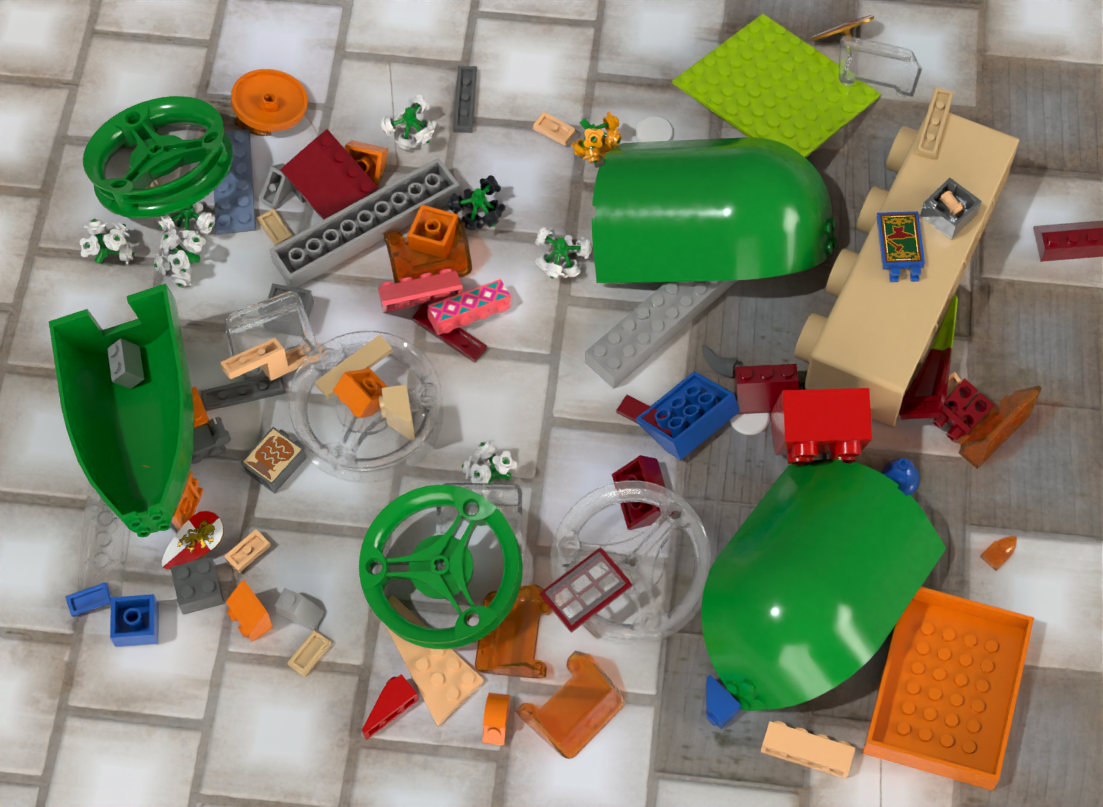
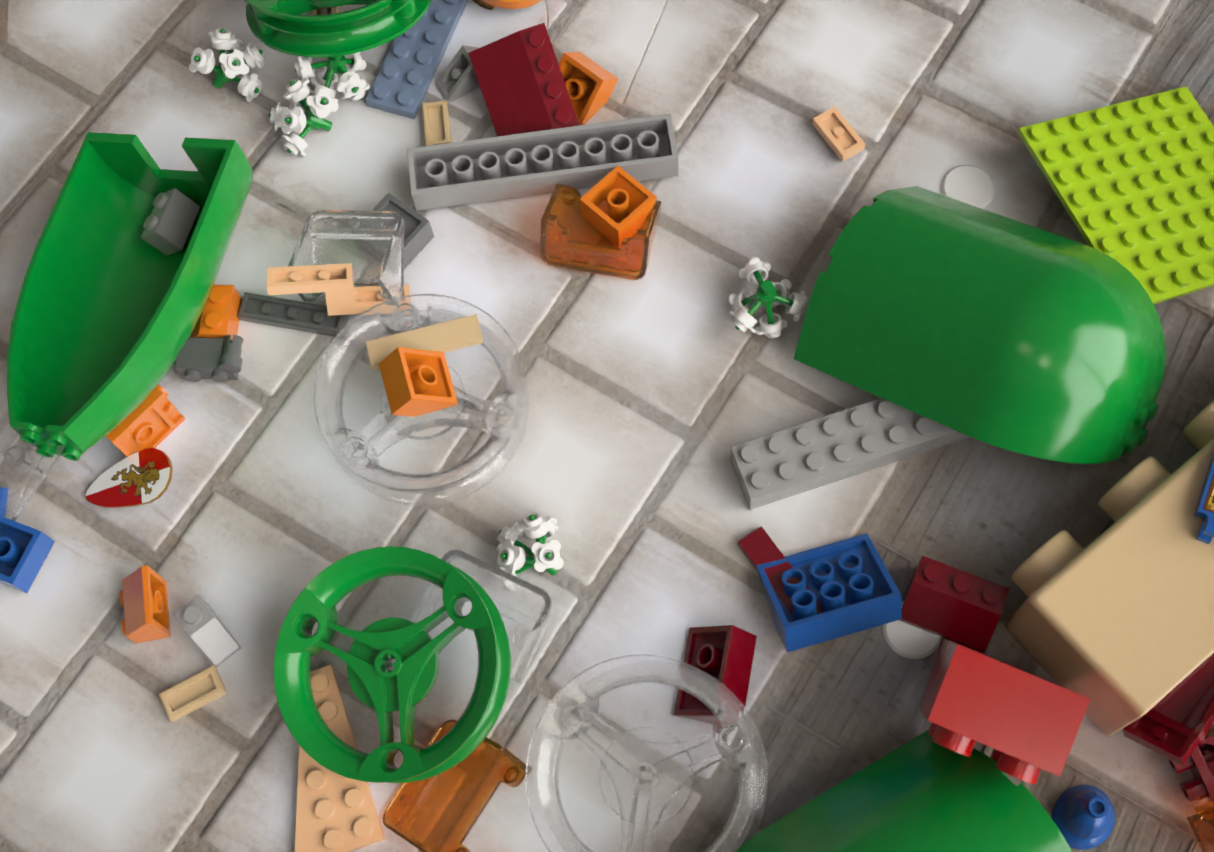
camera: 30 degrees right, 5 degrees up
(197, 585) = (106, 541): dark grey brick -> none
(247, 551) = (189, 522): light nougat plate -> none
(274, 459) = (279, 418): brick -> none
(393, 700) = (251, 813): red slope -> none
(397, 410) = (445, 424): tan slope -> none
(406, 120) = (657, 52): white plant -> none
(419, 291) = (560, 275): coral slope -> none
(457, 338) = (577, 346): dark red tile -> none
(465, 99) = (745, 54): dark grey tile -> none
(469, 307) = (615, 322): coral brick -> none
(476, 200) = (691, 185): black plant -> none
(585, 589) = (562, 789): clear piece -> none
(593, 137) = (878, 166): light orange plant -> none
(721, 365) = (908, 541): dark grey bar -> none

